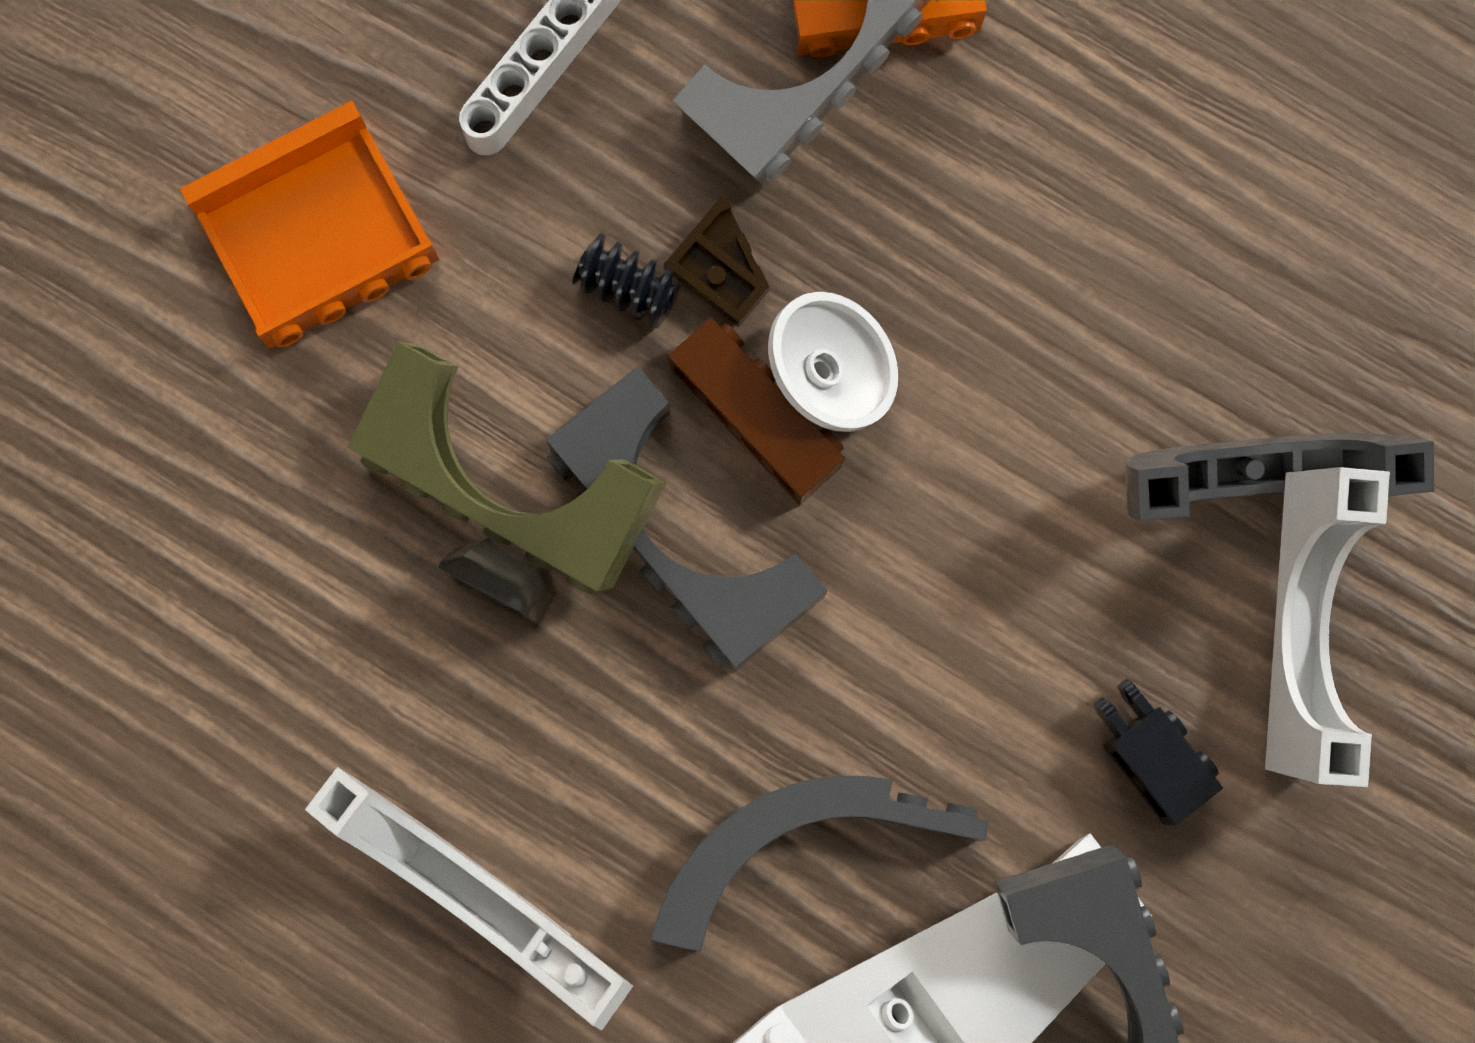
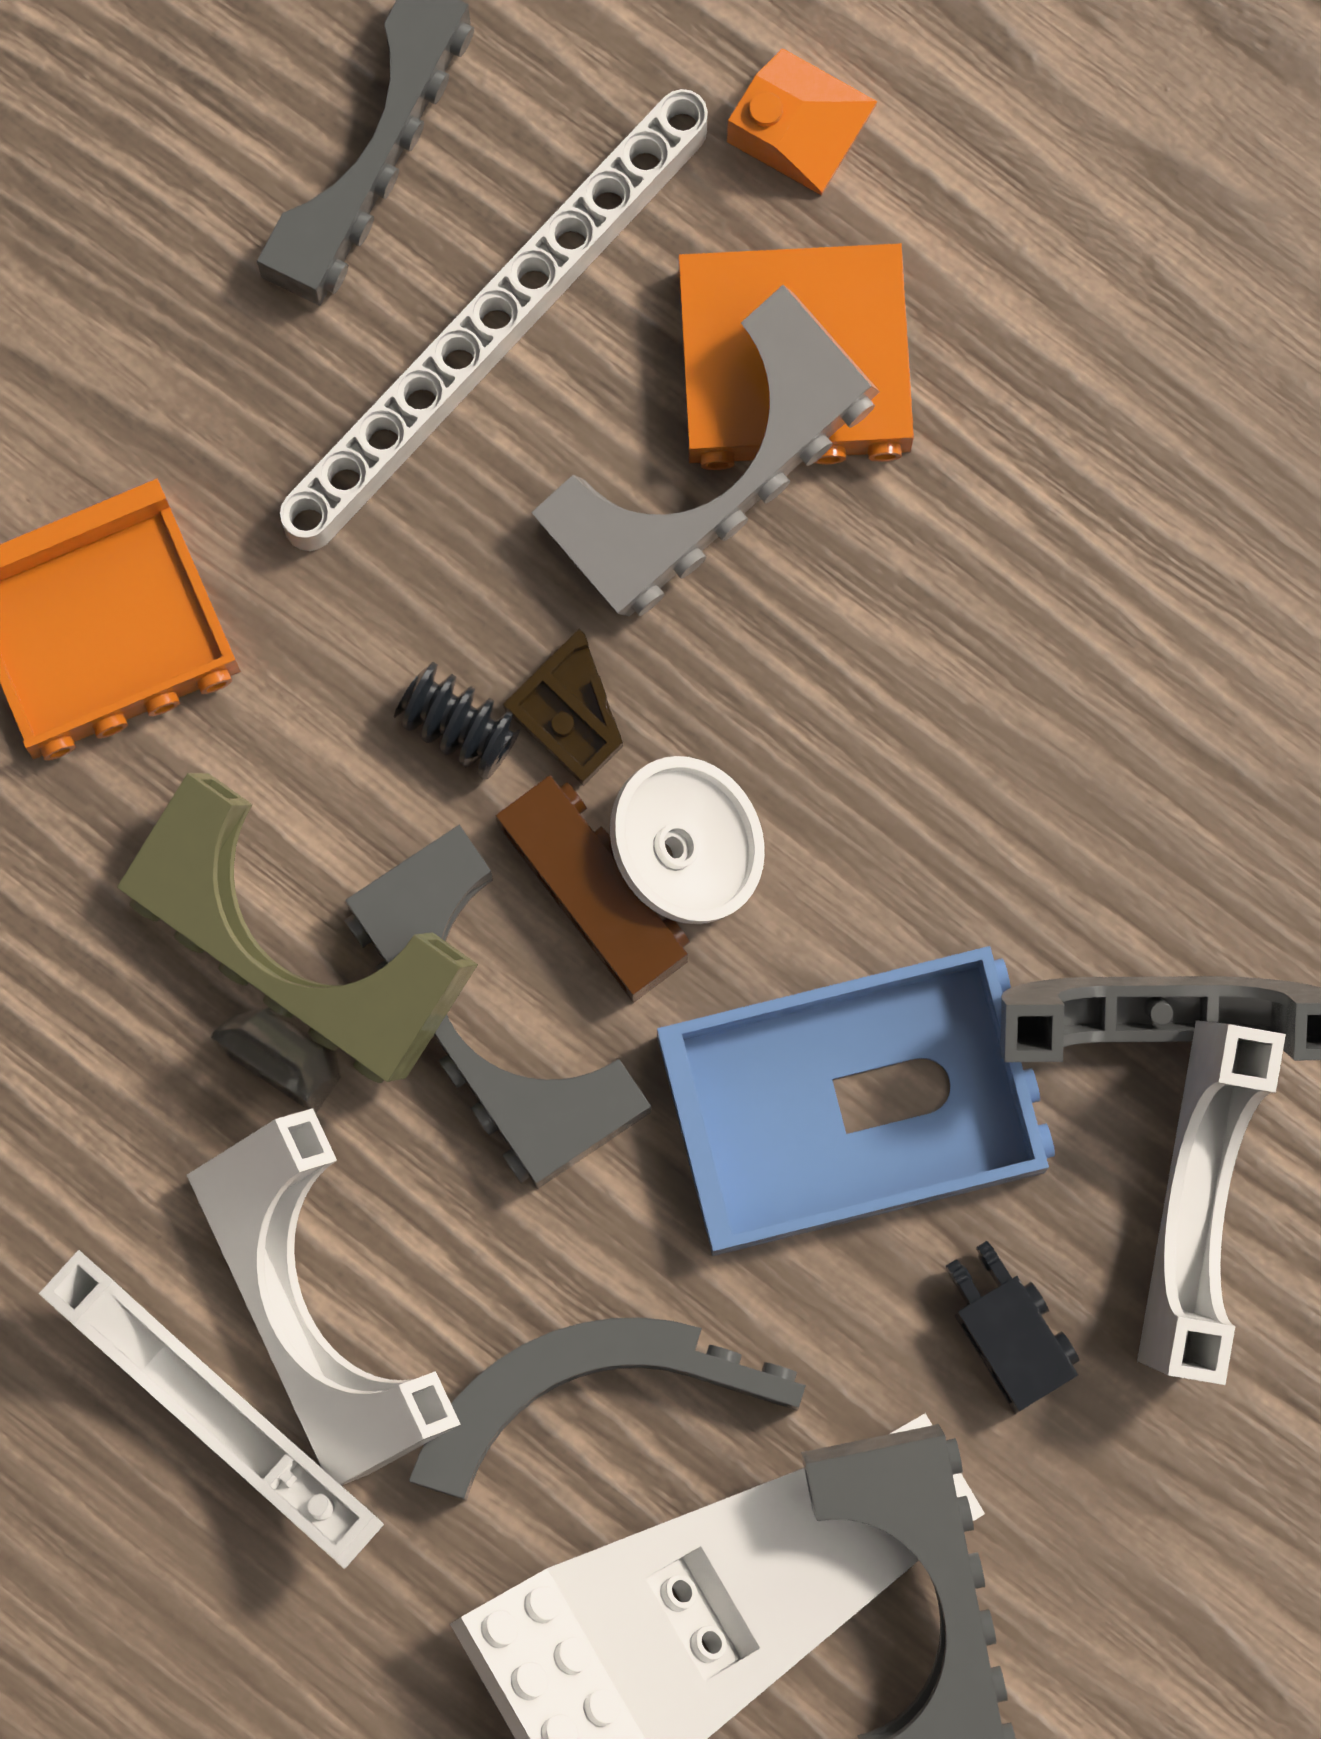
camera: 10 degrees right, 0 degrees up
(491, 712) = (253, 1209): none -> white arch
(924, 594) = (768, 1122): none -> medium blue panel

